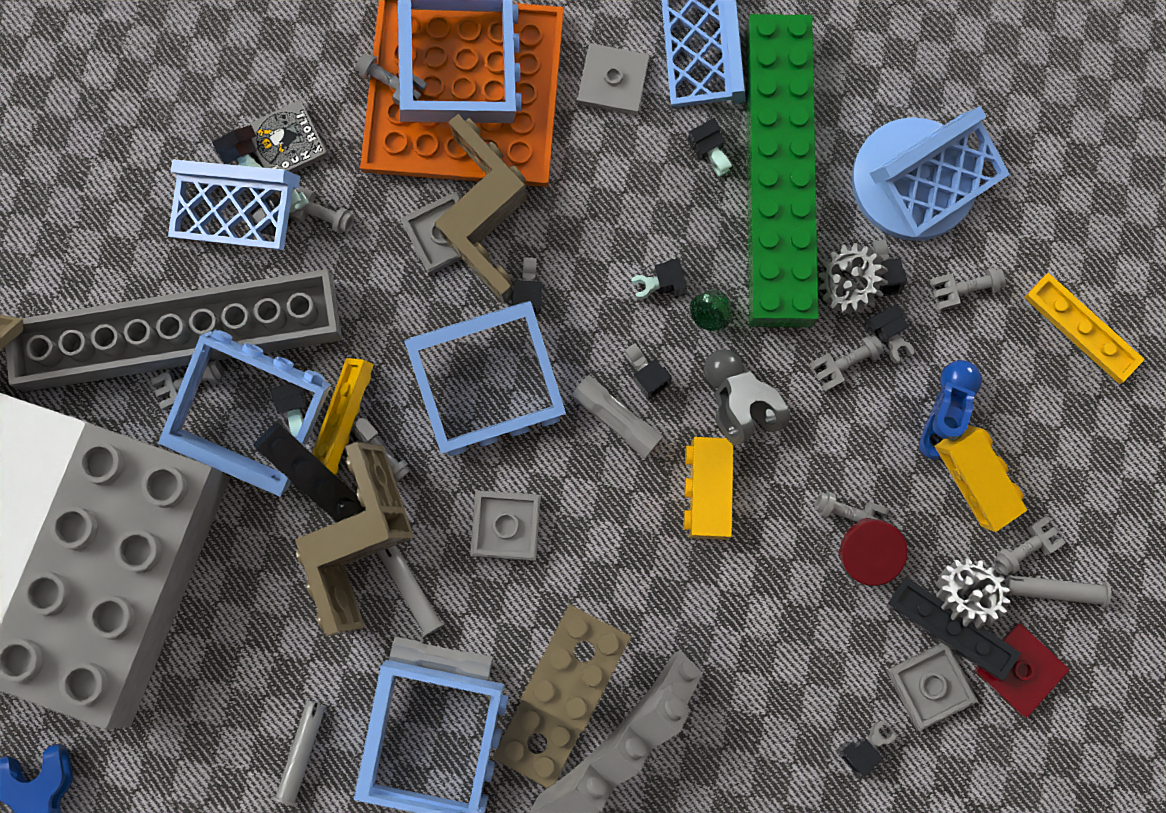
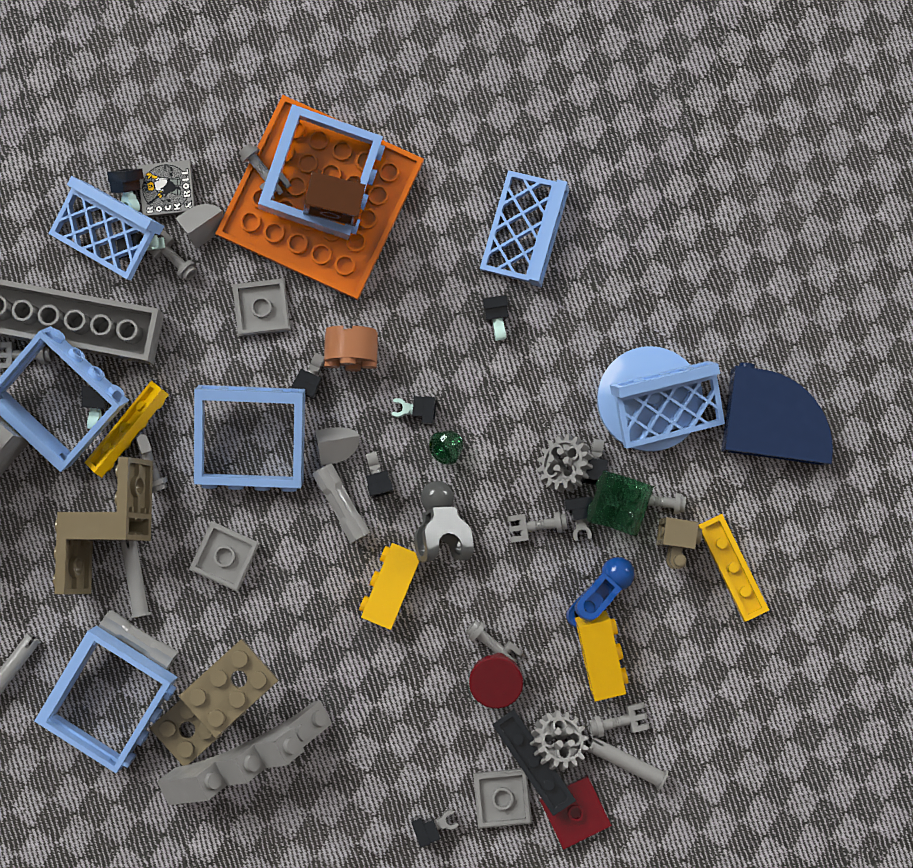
camera: 20 degrees right, 5 degrees up
(308, 473) = (85, 464): black plate -> none
(339, 163) = (200, 223): none -> light grey brick
(482, 207) = (294, 305): dark tan bracket -> none
(486, 69) = (334, 198): none -> reddish brown container
(563, 236) = (351, 348): none -> nougat brick
(586, 352) = (336, 444): none -> light grey brick
(613, 79) = (442, 231): light grey plate -> none
(781, 171) = (544, 354): green brick -> none
(933, 299) = (619, 503): none -> clear green bracket
(1010, 313) = (677, 535): none -> dark tan brick
(1061, 149) = (774, 418): none -> dark blue brick

